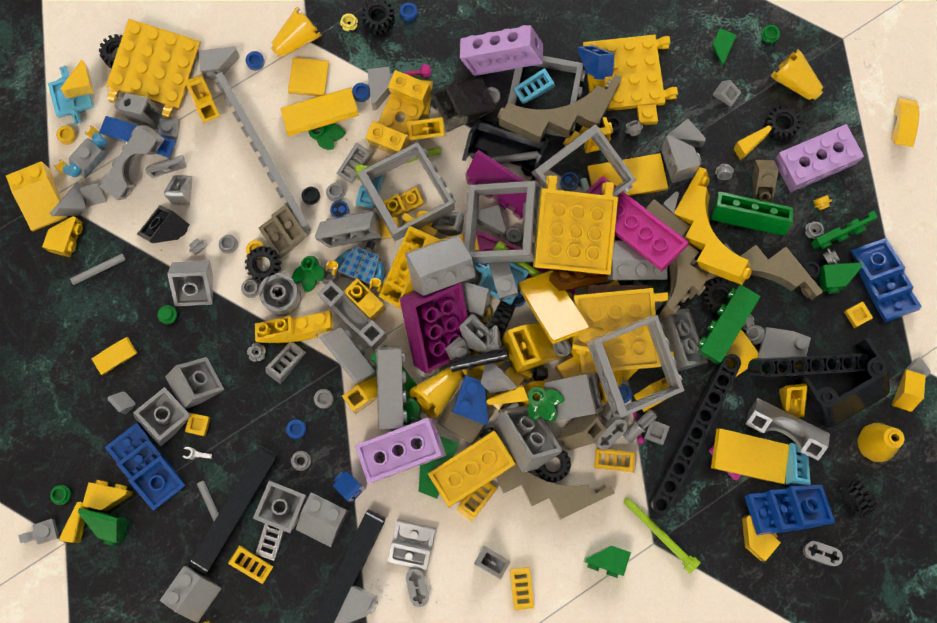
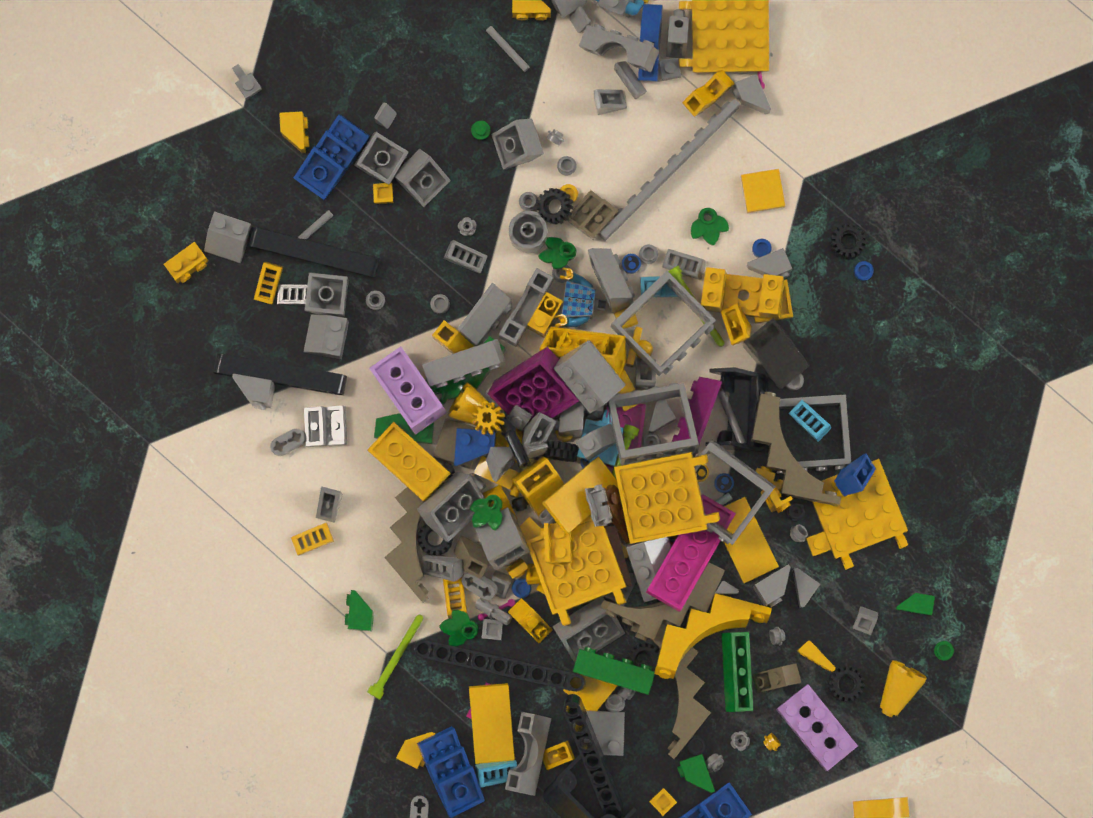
camera: 75 degrees right, 5 degrees up
(60, 495) = (285, 88): green plate -> none
(74, 527) = (259, 111): yellow slope -> none
(105, 525) = (268, 140): green slope -> none
(114, 355) = (427, 94): yellow slope -> none
(163, 226) = (565, 97): black slope -> none
(194, 453) = (355, 201): white hand -> none
(255, 61) = (765, 131): blue tile -> none
(293, 330) = (498, 255): yellow slope -> none
(294, 34) = (803, 164): yellow cone -> none
(296, 429) = (404, 287): blue tile -> none
(310, 195) = (638, 230): black plate -> none
(319, 111) = (726, 213): yellow tile -> none
(348, 486) = (362, 351): blue slope -> none
(349, 18) = (838, 213): light yellow plate -> none
(404, 203) = (656, 324): yellow slope -> none
(424, 72) = (801, 306): dark pink hand -> none
(456, 370) = (481, 418): none -> yellow gear
(477, 509) = (366, 474): yellow slope -> none
(501, 50) = (836, 376): lavender brick -> none
(509, 396) = (489, 486): yellow slope -> none
(559, 292) = (600, 514): none -> light grey hinge
(585, 452) = (454, 567): none -> light grey slope
(607, 377) = (556, 618): light grey window -> none
(647, 464) = (456, 628): none -> green plate
(825, 240) = (741, 768): green wing -> none

